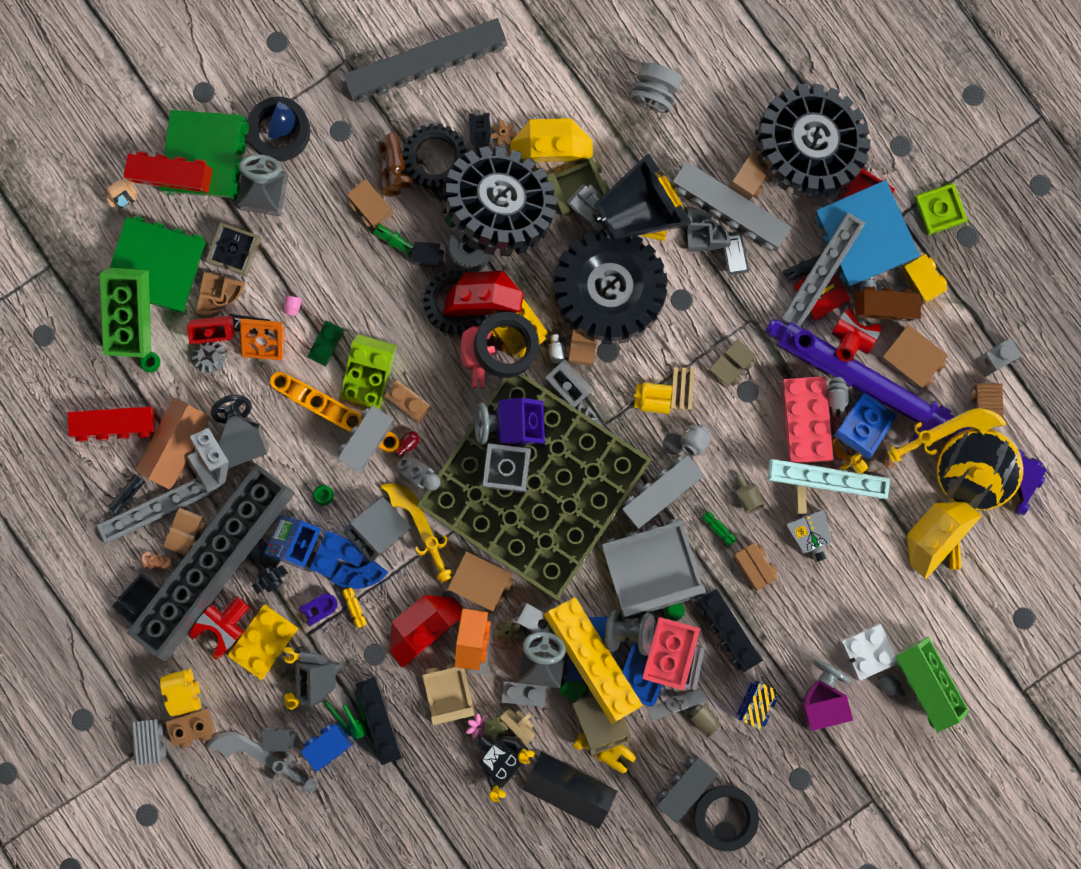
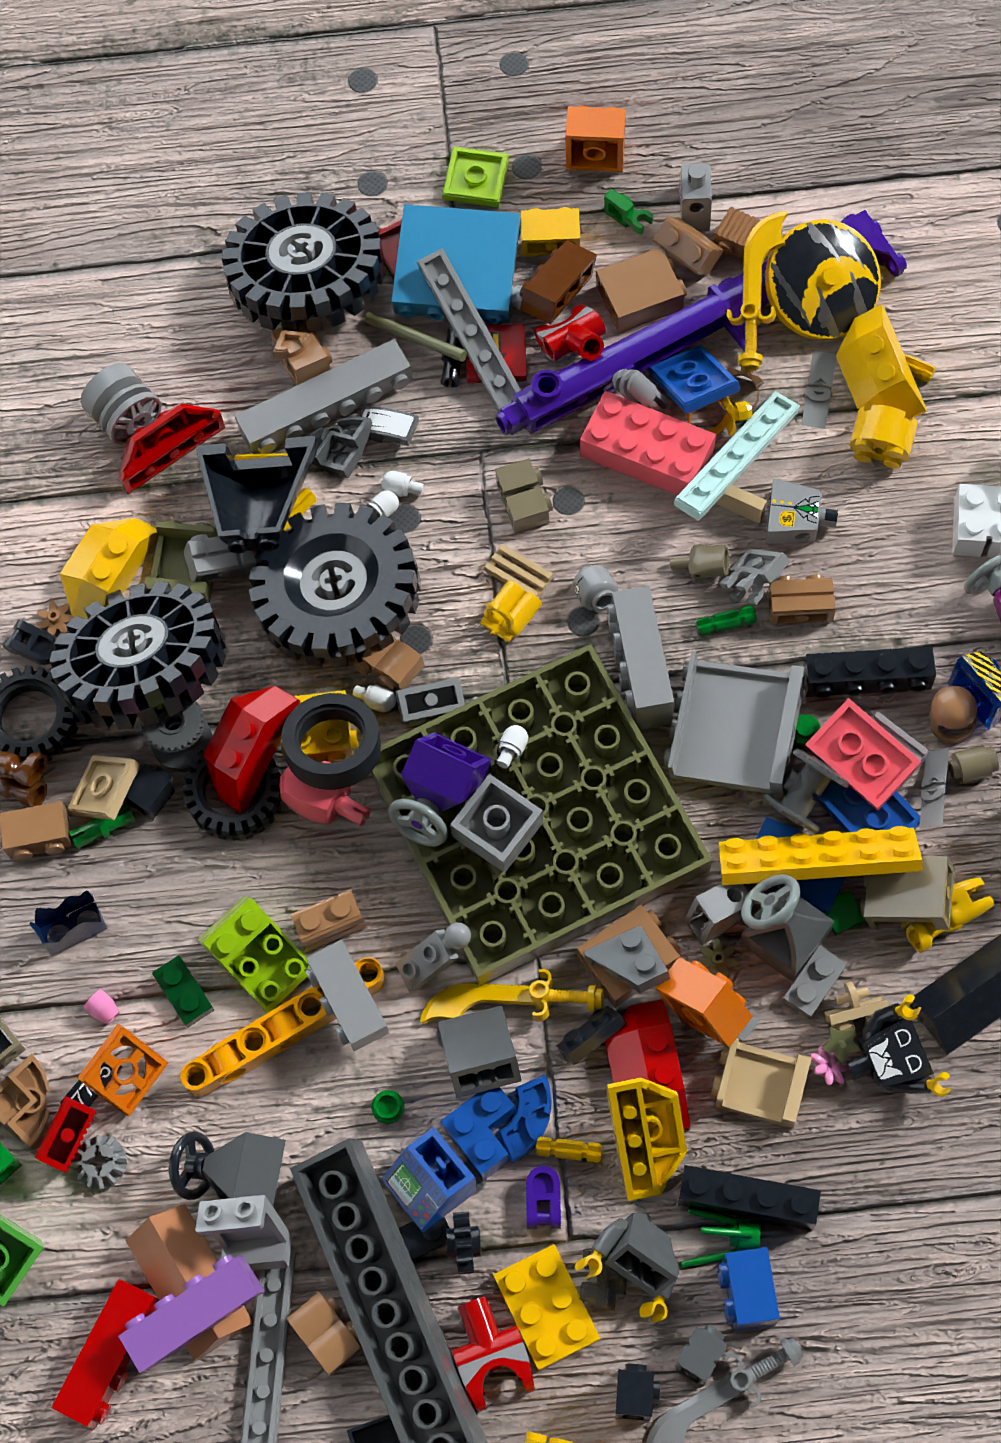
camera: 60 degrees left, 15 degrees down
(126, 494) = (221, 1391): black pin -> none
(151, 458) = (190, 1313): none -> medium lavender brick
(156, 561) = (343, 1401): nougat piece -> none
(157, 362) = (51, 1241): green plate -> none
(240, 715) = (636, 1393): none -> black brick
(319, 242) = (49, 917): none -> dark blue piece
(380, 647) = (646, 1135): none -> yellow wedge
(407, 442) = (384, 951): dark red cylinder -> none
(414, 227) = (103, 787): none -> tan tile
(423, 585) = (590, 1035): none -> black plate
(472, 585) = (630, 959): none -> wing
(561, 449) = (511, 745): none -> white cylinder
(648, 128) = (166, 441): none -> red wedge
(680, 282) = (384, 503): none -> white cylinder
(700, 285) = (400, 484): none -> white cylinder
(730, 693) = (954, 709): none -> medium nougat helmet
(748, 168) = (291, 344): none -> medium nougat tile
(760, 532) = (753, 571): none -> light grey plate
(803, 238) = (416, 337): none -> olive bar
(891, 561) = (883, 435): none -> yellow brick
(908, 503) = (819, 389): none -> light grey piece
(960, 371) = (688, 245): none -> medium nougat brick
(967, 313) = (622, 210): none -> green plate
(1005, 271) = (595, 138): none -> orange brick

